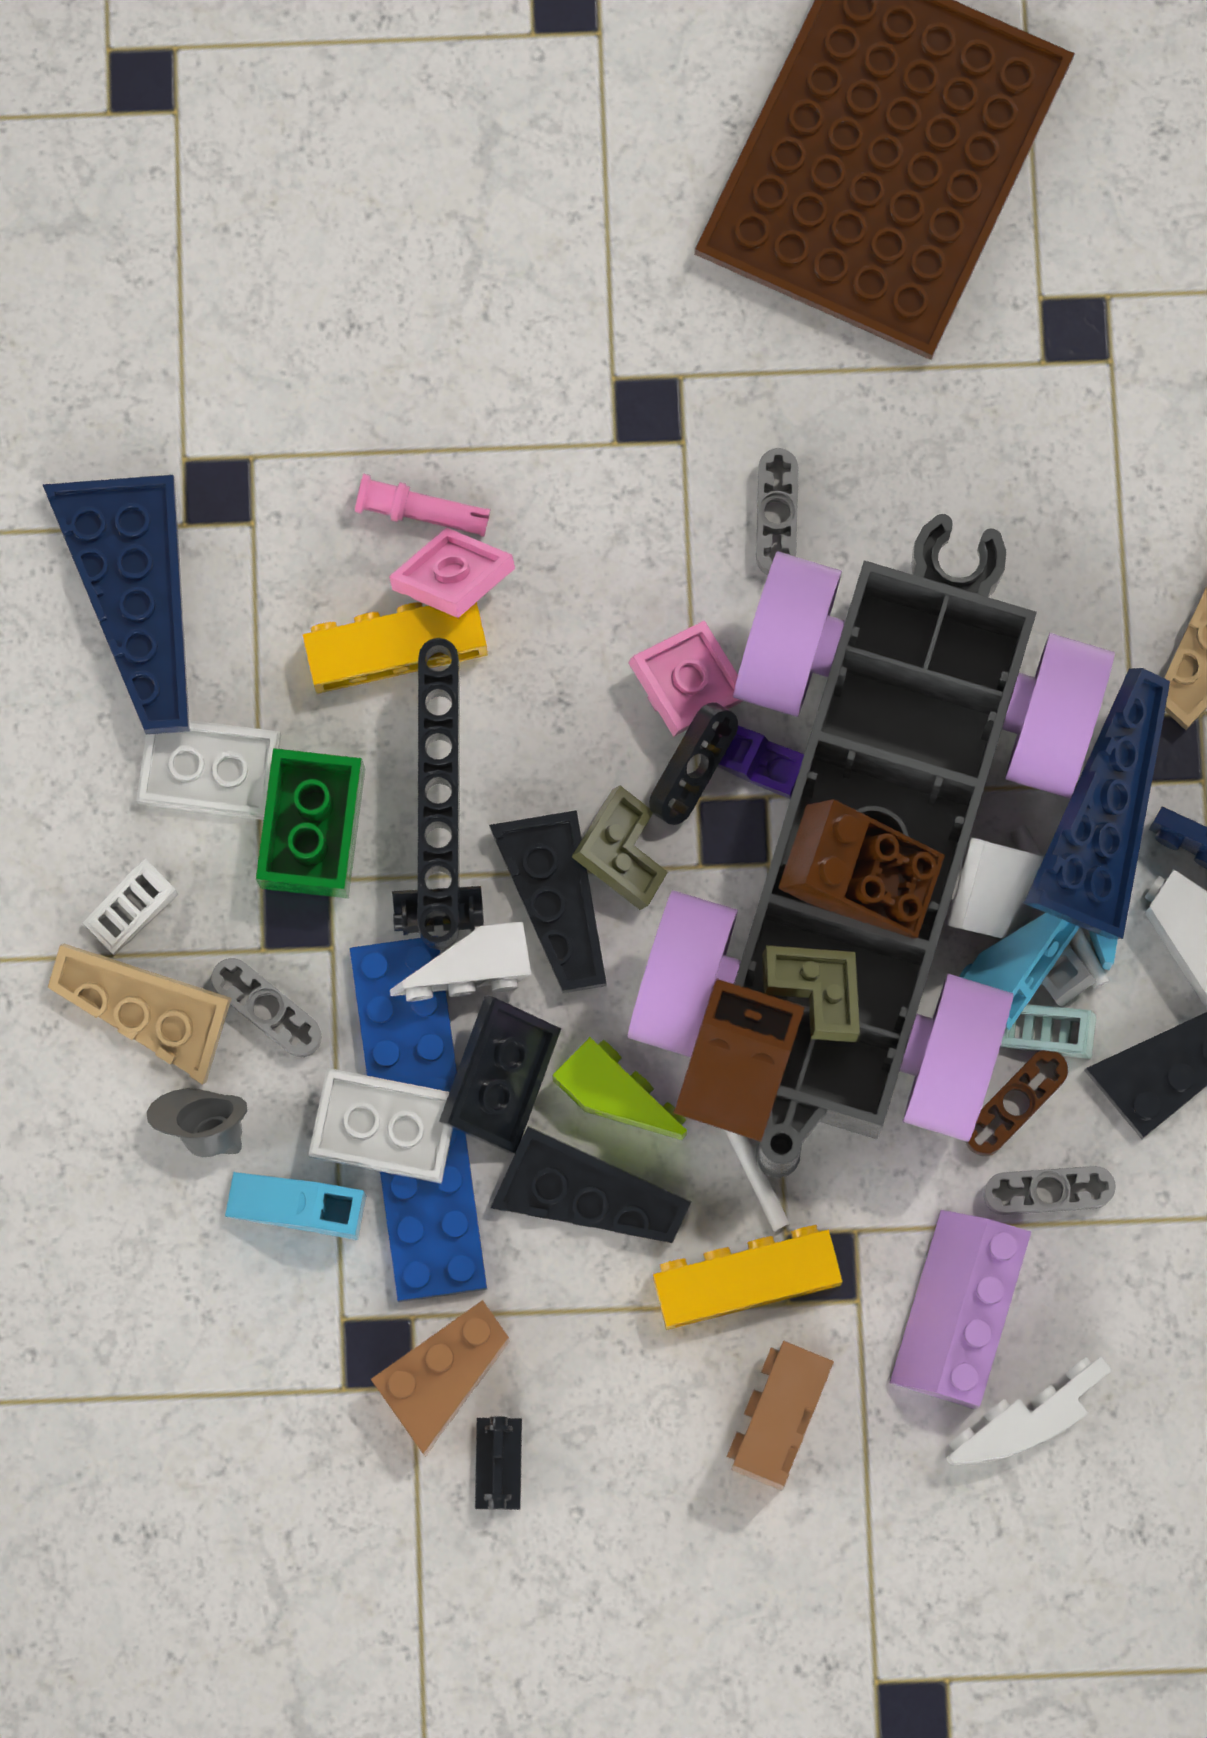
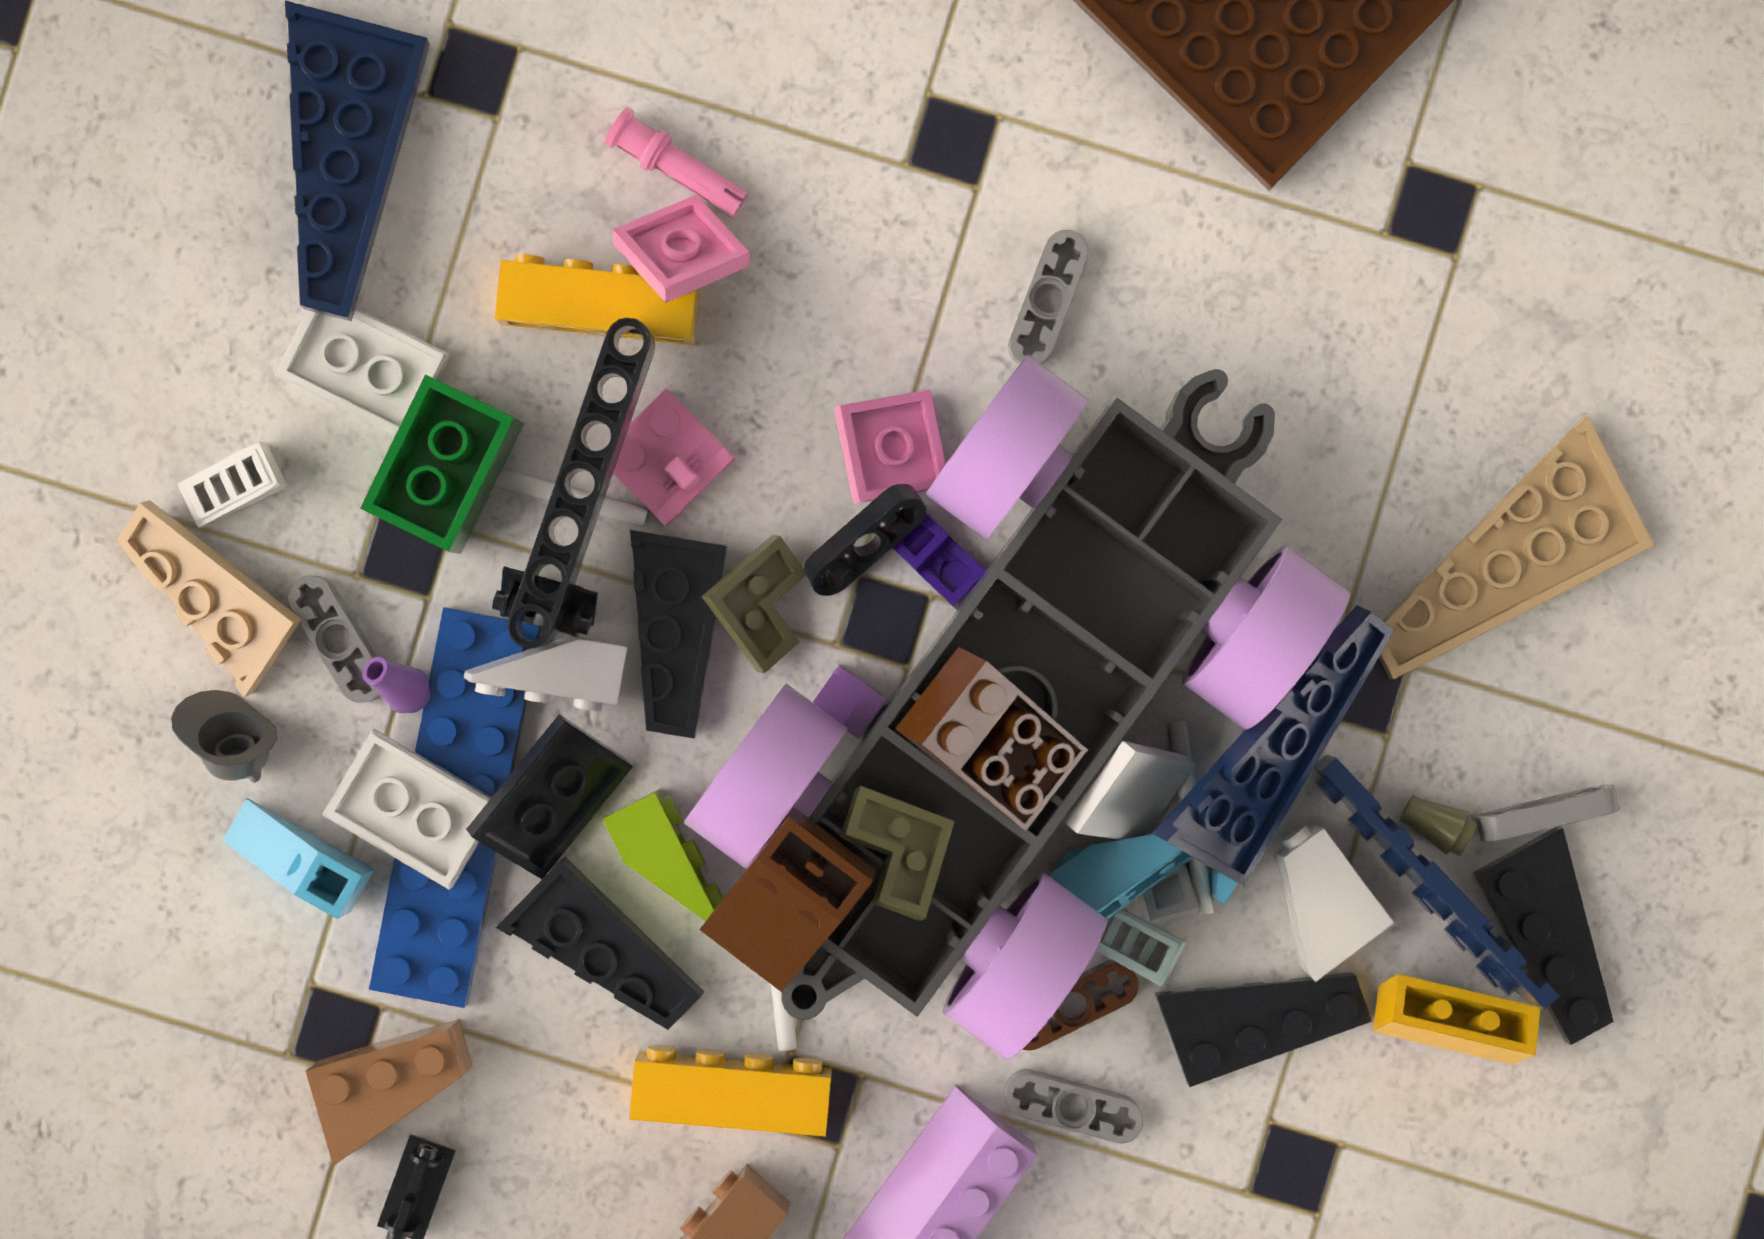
camera: 20 degrees right, 10 degrees up
(336, 1024) = (399, 685): none -> medium lavender cone
(409, 819) = (542, 490): none -> white bar
(501, 755) = (669, 458): none -> bright pink hinge
(735, 896) = (849, 701): none -> medium lavender panel

